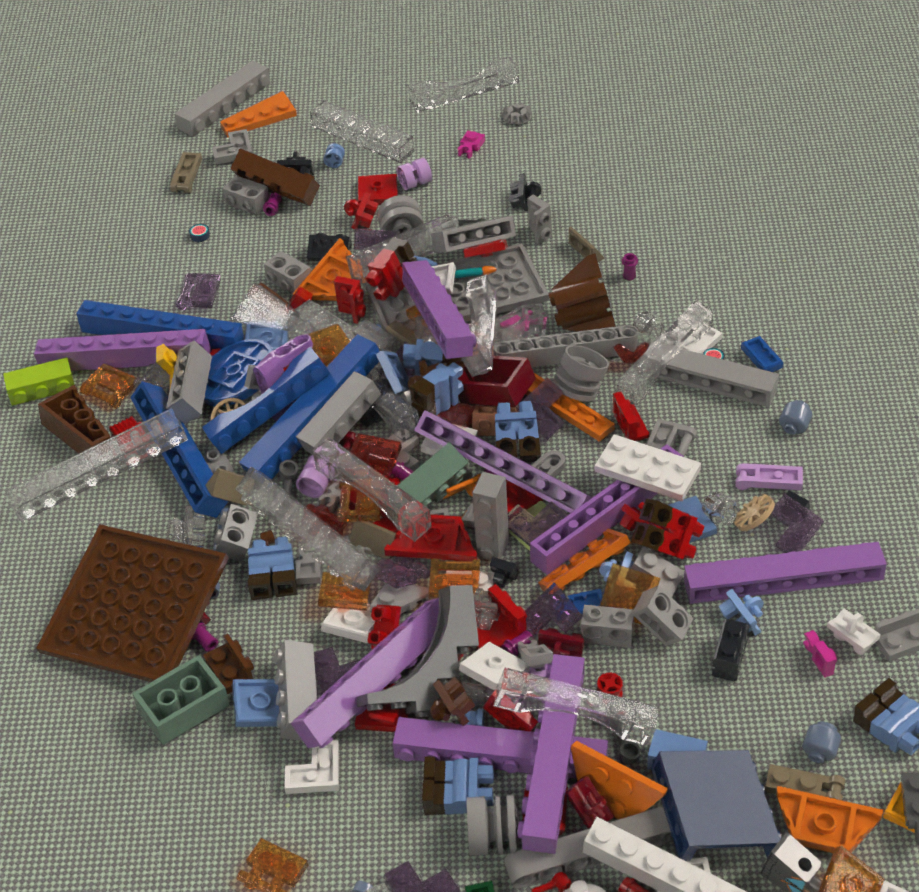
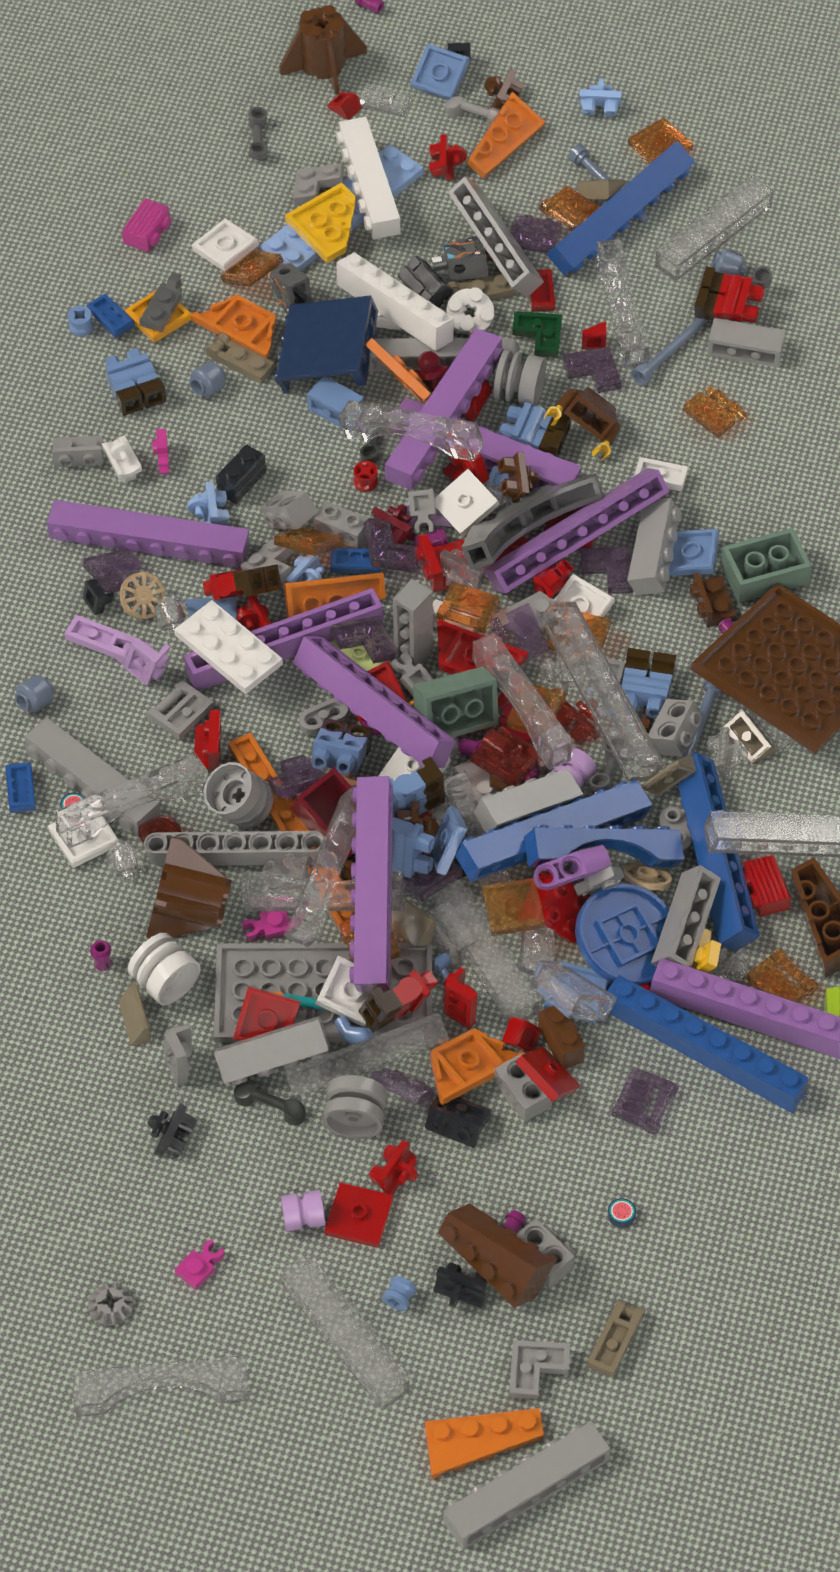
camera: 165 degrees left, 10 degrees up
(271, 270) = (547, 1073): none -> red plate
(404, 806) = (591, 413): none -> reddish brown torso
(571, 252) = (164, 968): none -> white wheel
(715, 451) = (145, 662): none -> lavender bracket

